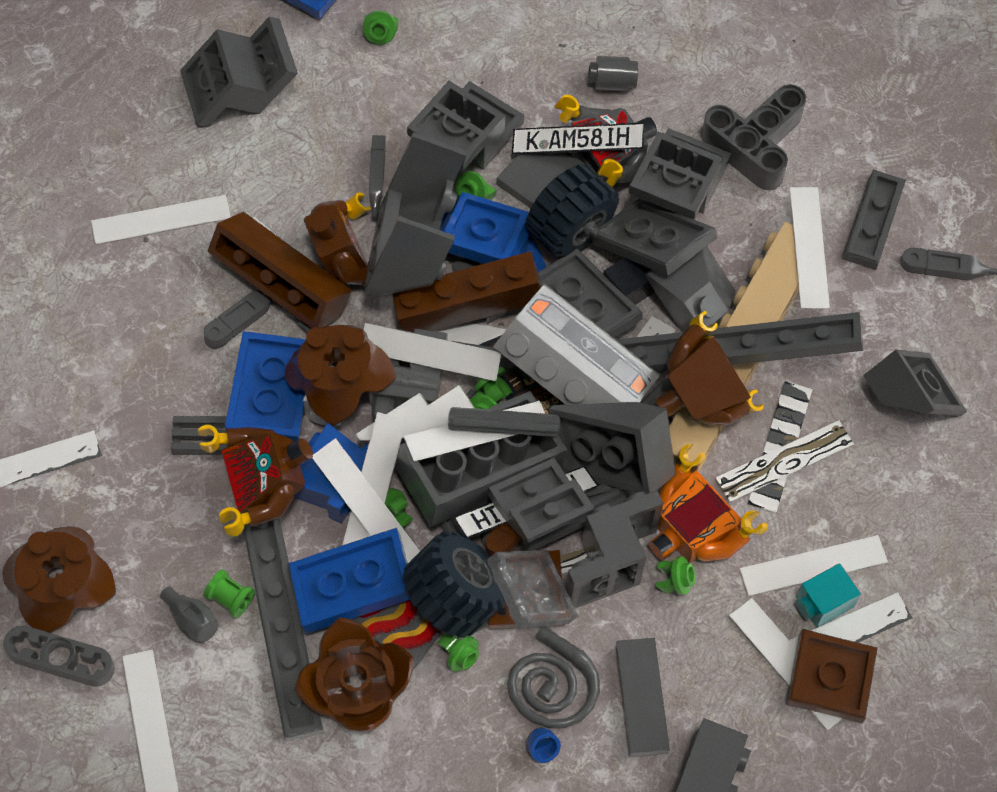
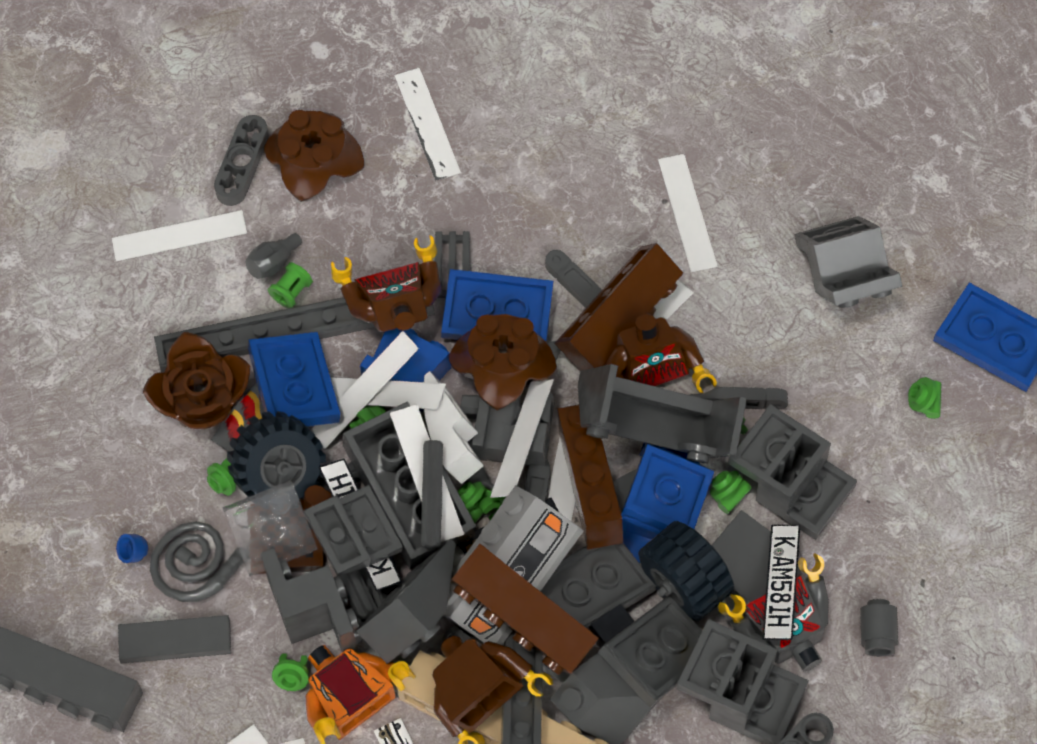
camera: 95 degrees right, 0 degrees up
(629, 335) = (524, 610): none -> reddish brown brick

